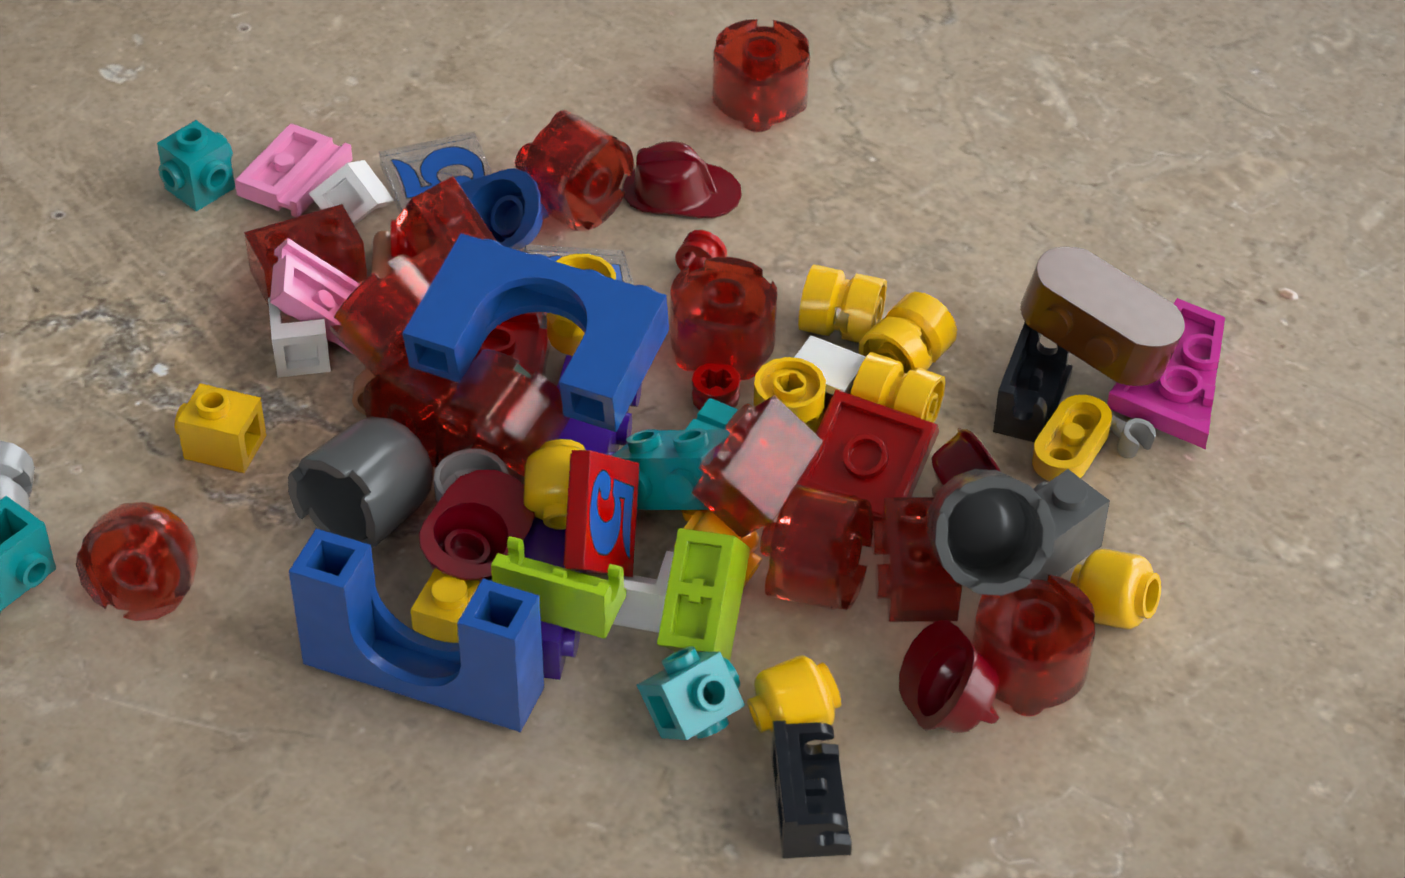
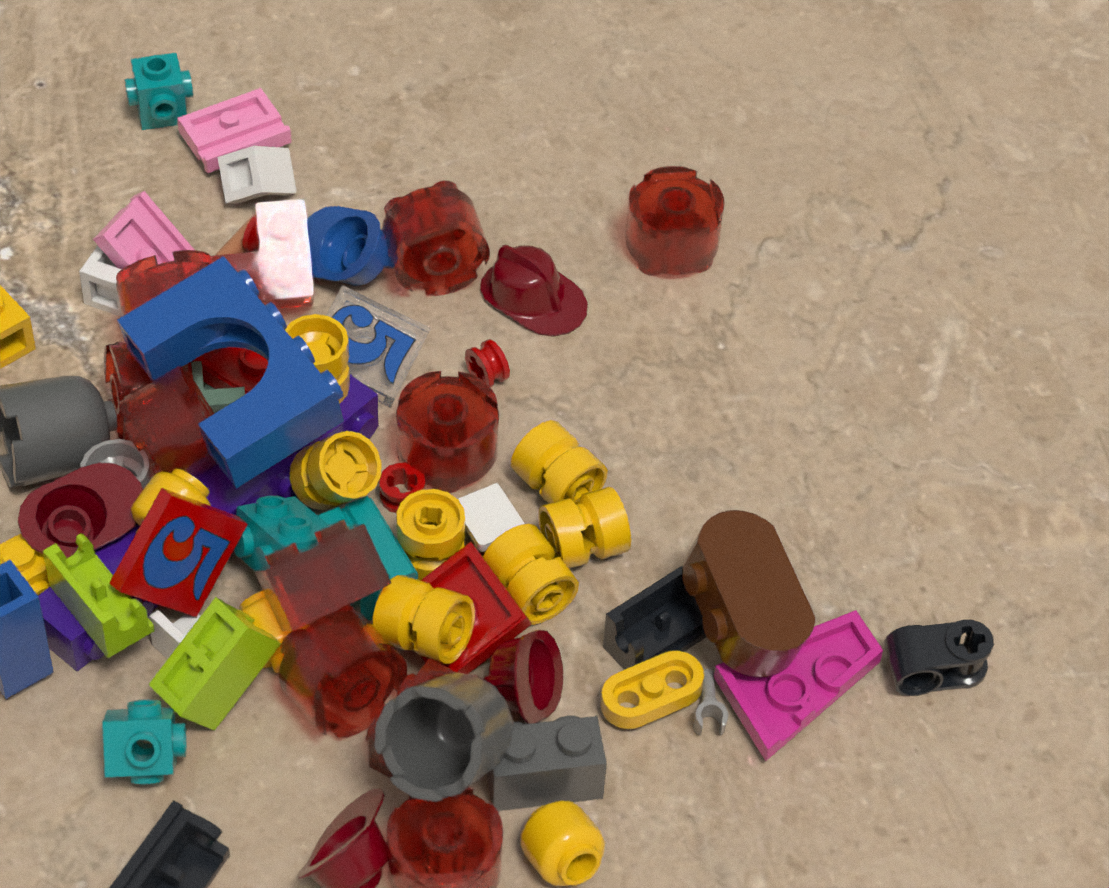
camera: 30 degrees right, 5 degrees up
(323, 233) = (176, 195): clear red brick -> none
(423, 165) = (346, 181): tile -> none
(675, 387) = (335, 470): none -> yellow wheel
(794, 693) = (219, 789): yellow head -> none
(858, 465) = (424, 618): none -> yellow wheel
(1268, 300) = (934, 660): none -> black piece

